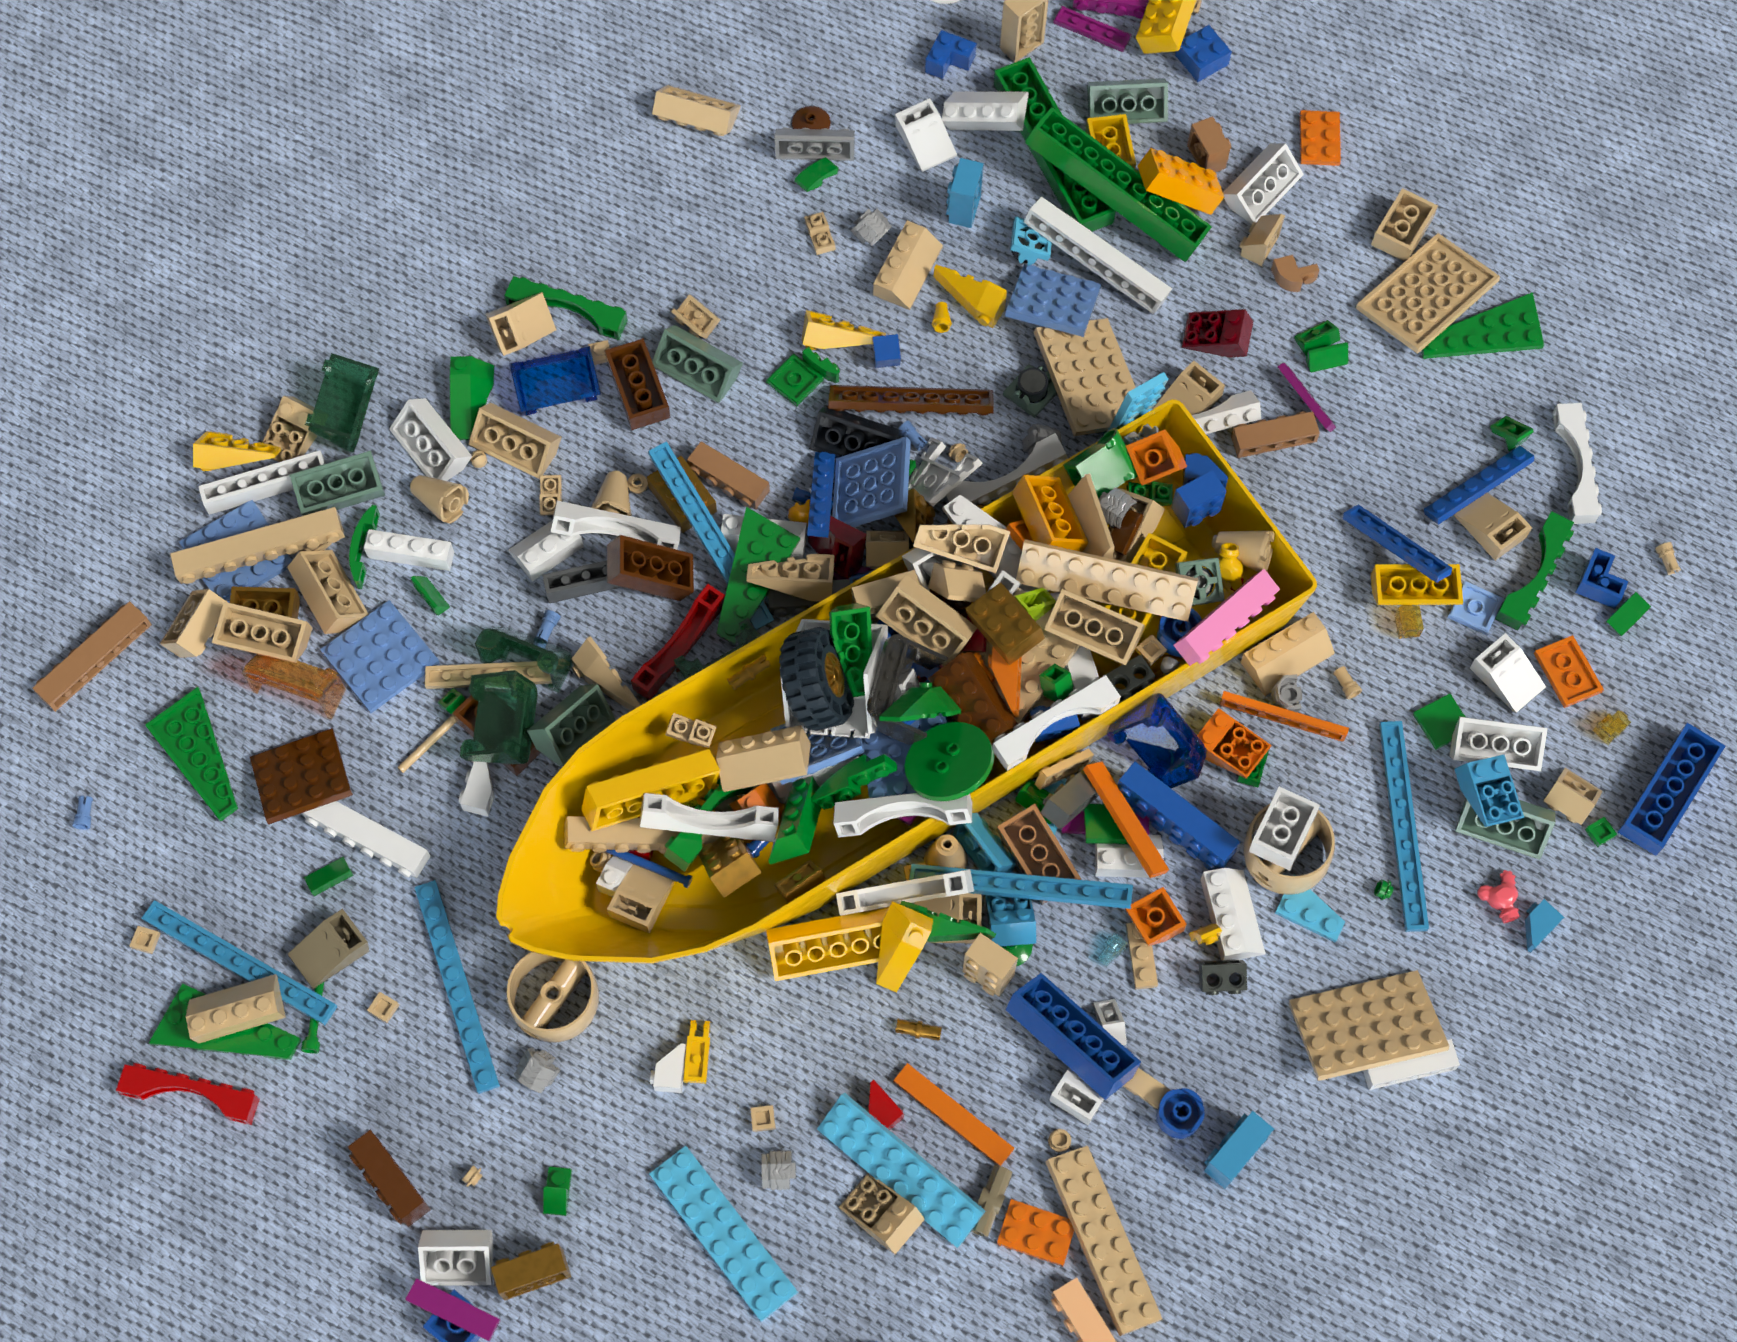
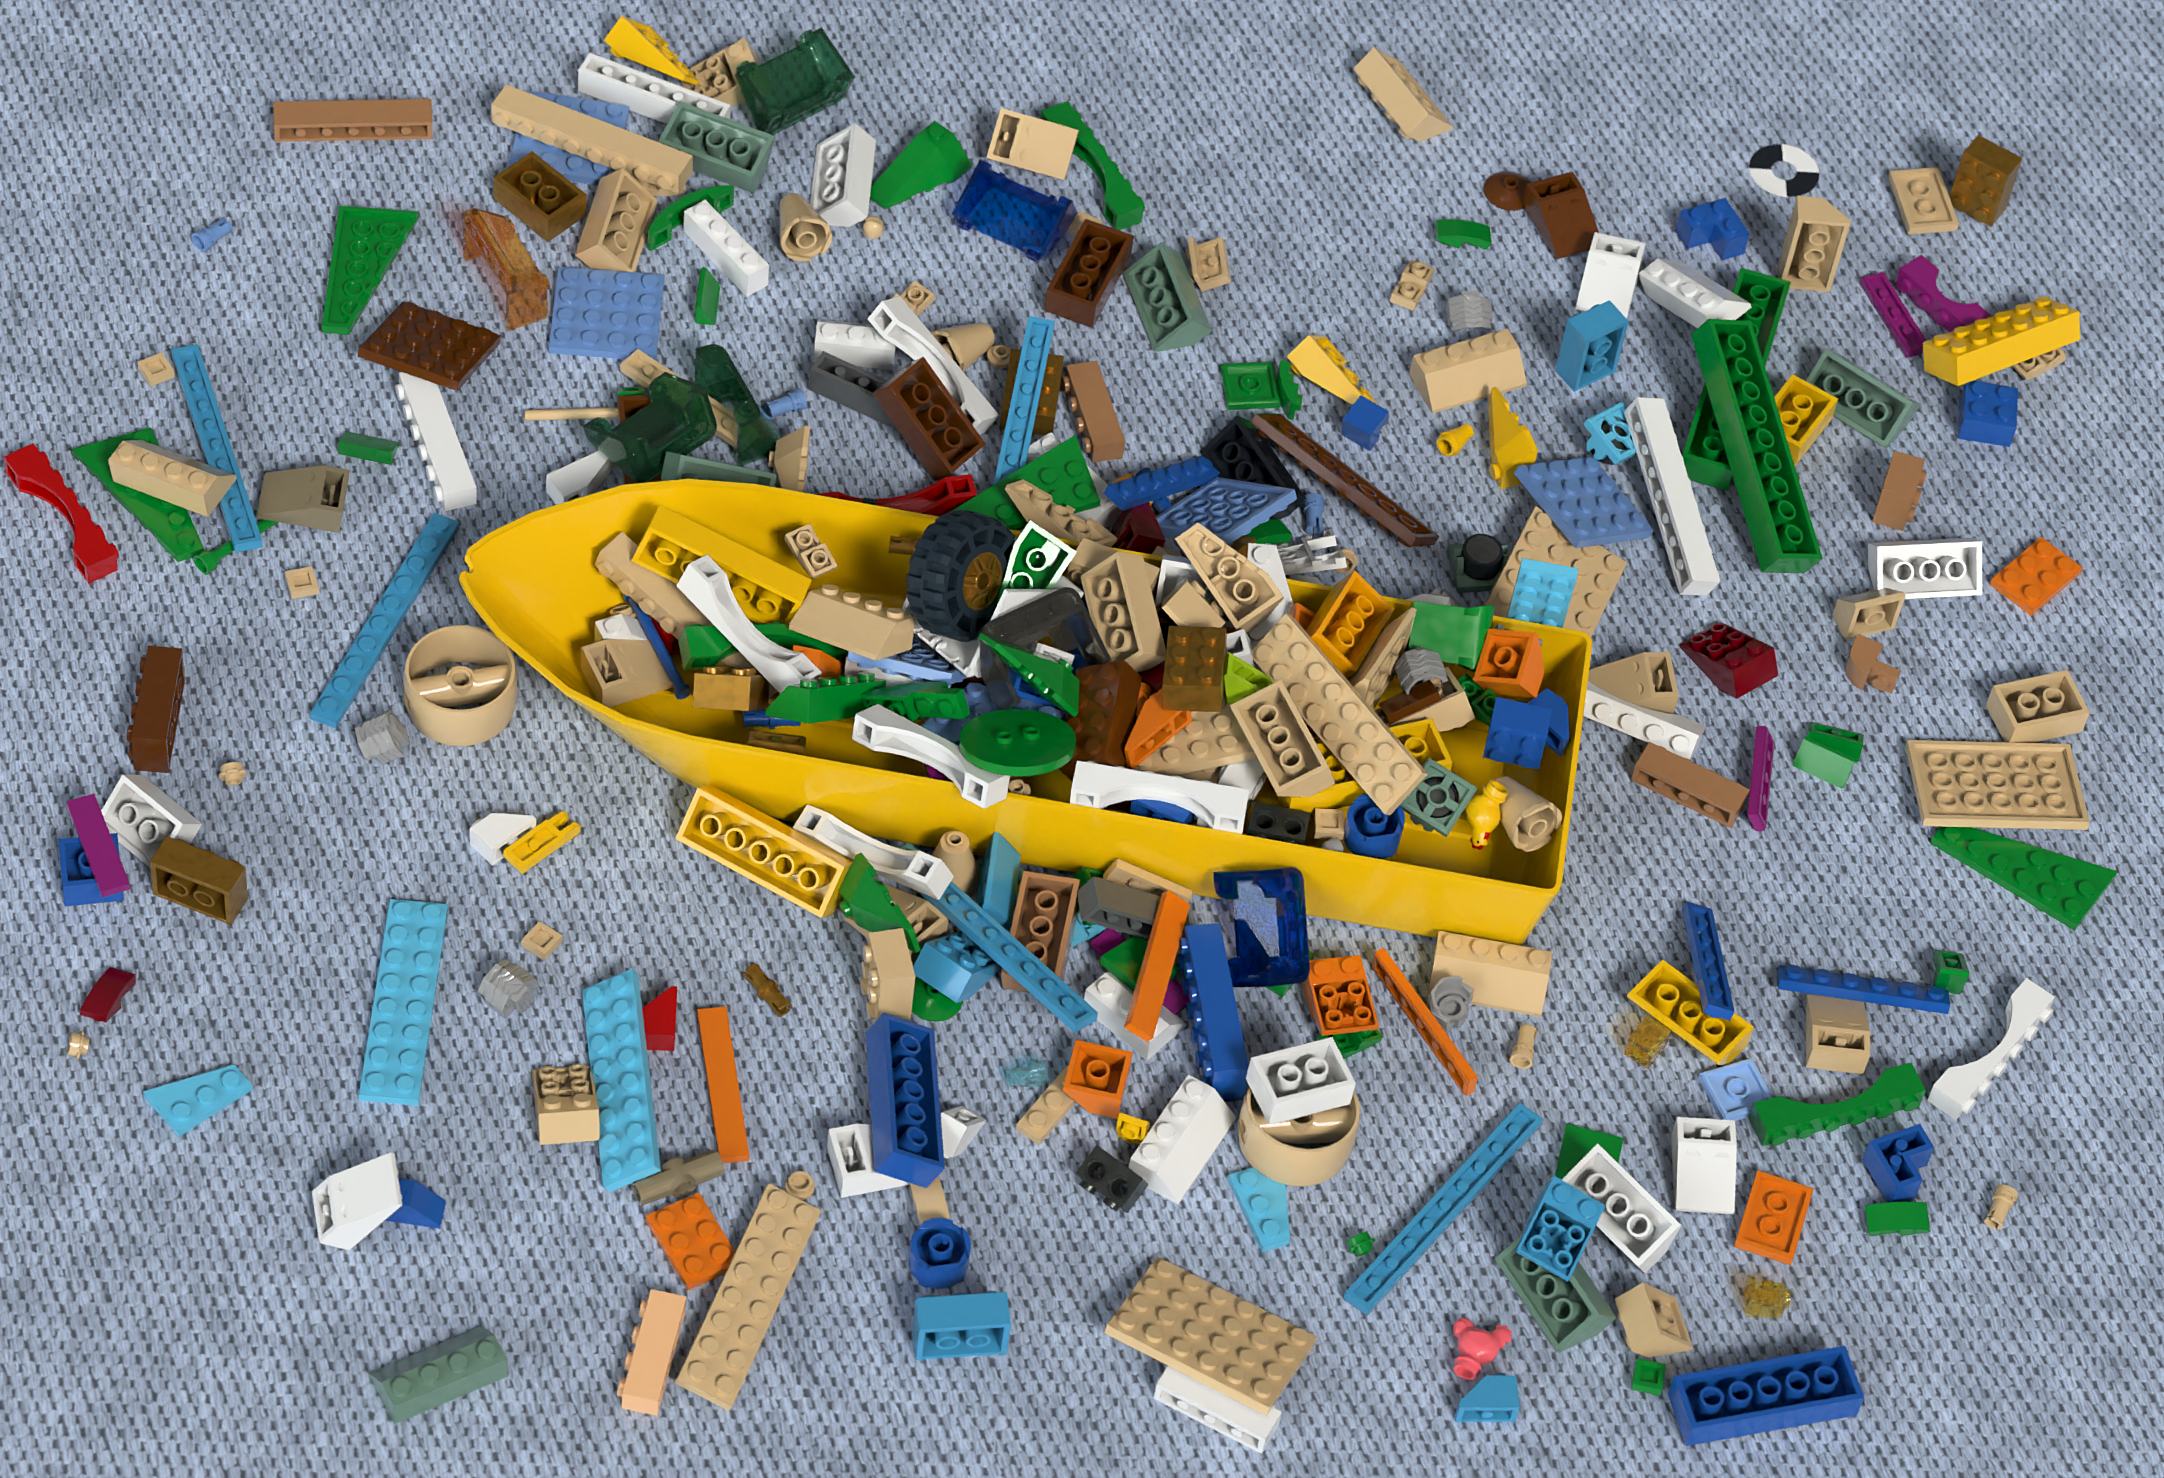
camera: 35 degrees right, 15 degrees down
(194, 624) = (468, 158): tan brick -> none
(262, 632) = (517, 198): tan slope -> none
(514, 440) = (922, 234): tan slope -> none
(557, 1191) = (293, 846): green slope -> none
(814, 144) = (1488, 205): light grey slope -> none
(861, 112) = (1561, 214): none -> reddish brown slope
(901, 942) = (827, 886): yellow wedge -> none
(1056, 683) = (1197, 763): green brick -> none
(1180, 181) = (1828, 491): light orange brick -> none
(1226, 617) = (1430, 843): bright pink brick -> none

